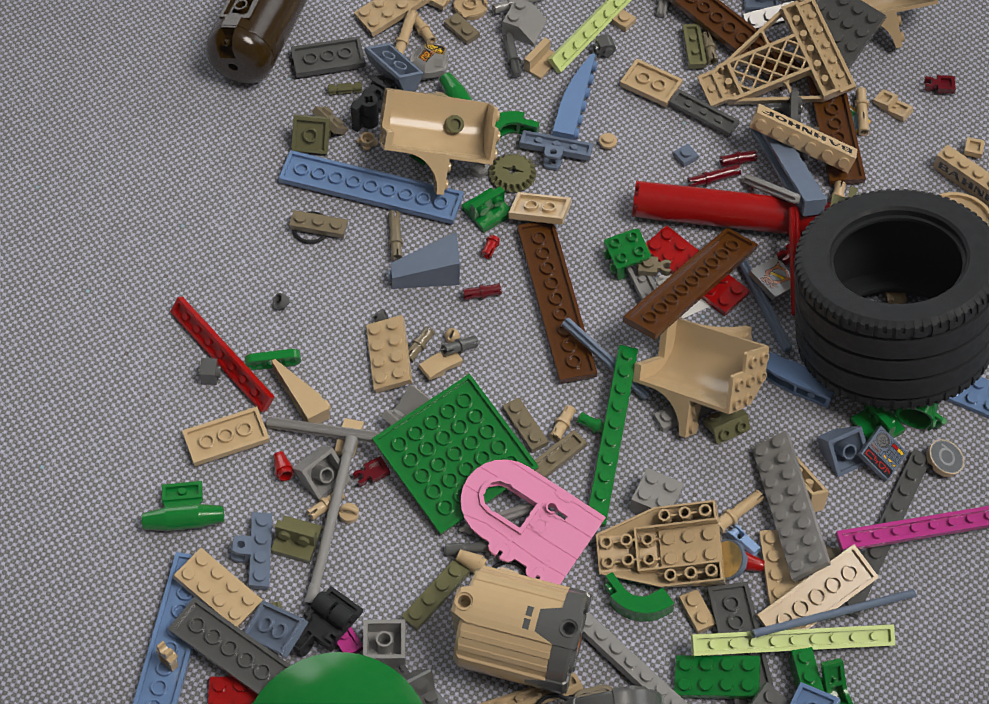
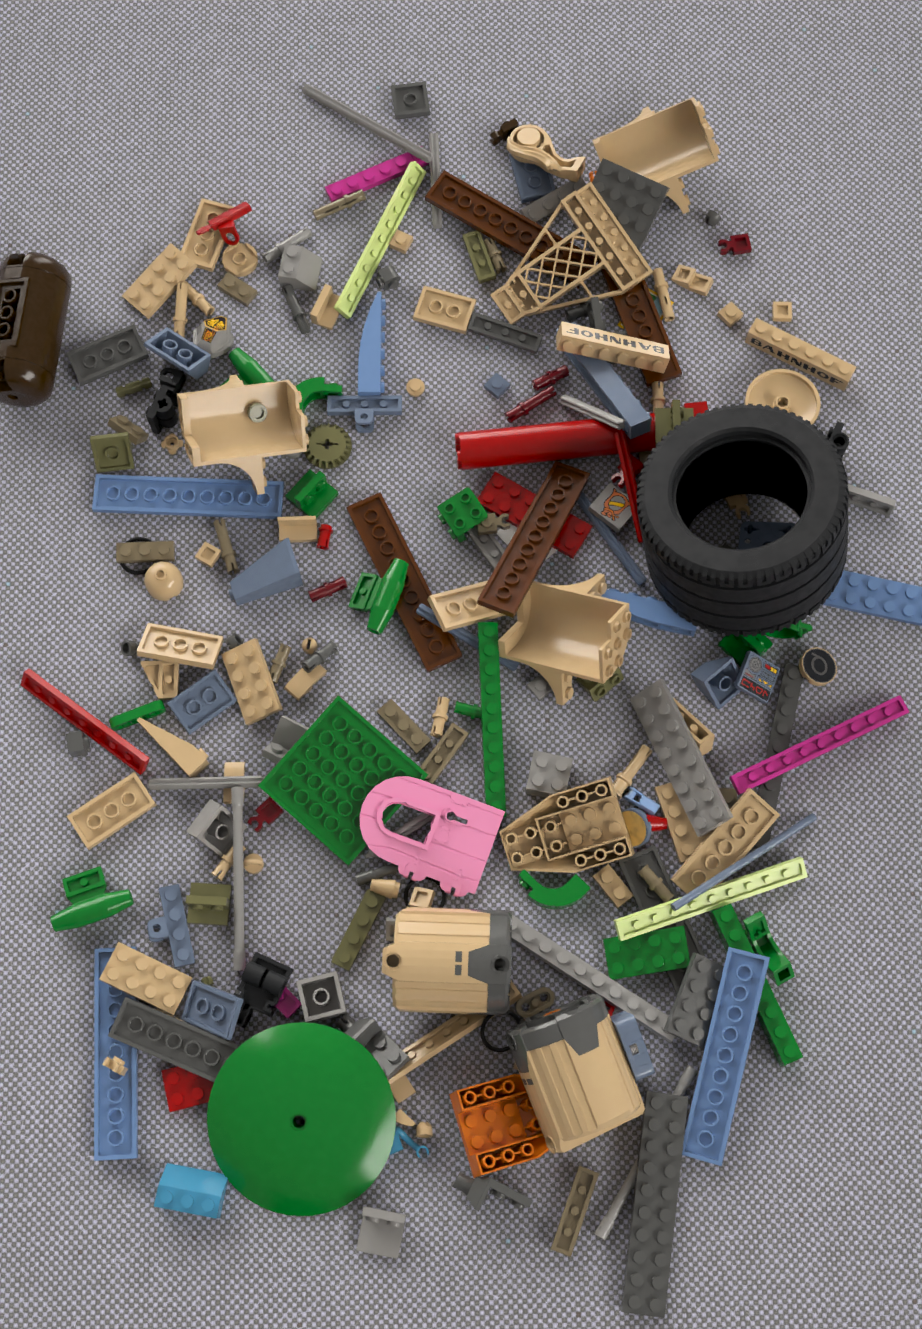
camera: 10 degrees left, 15 degrees up
(282, 466) = (176, 830): red cone -> none
(306, 333) = (163, 678): none -> tan wing
(328, 252) = (163, 581): none -> tan cylinder
(329, 308) = (180, 646): none -> tan plate
(337, 361) = (202, 701): none -> sand blue tile
(376, 238) = (208, 554): none -> tan plate
(469, 233) = (298, 529): none -> tan panel
(531, 304) = (380, 595): none -> green plate
(540, 208) = (364, 483): tan plate -> none
(609, 330) = (460, 607): none -> tan plate
(740, 613) = (655, 883): none -> dark tan pin
(923, 58) = (712, 218): none -> dark grey hinge
(923, 141) = (730, 314): none -> tan plate

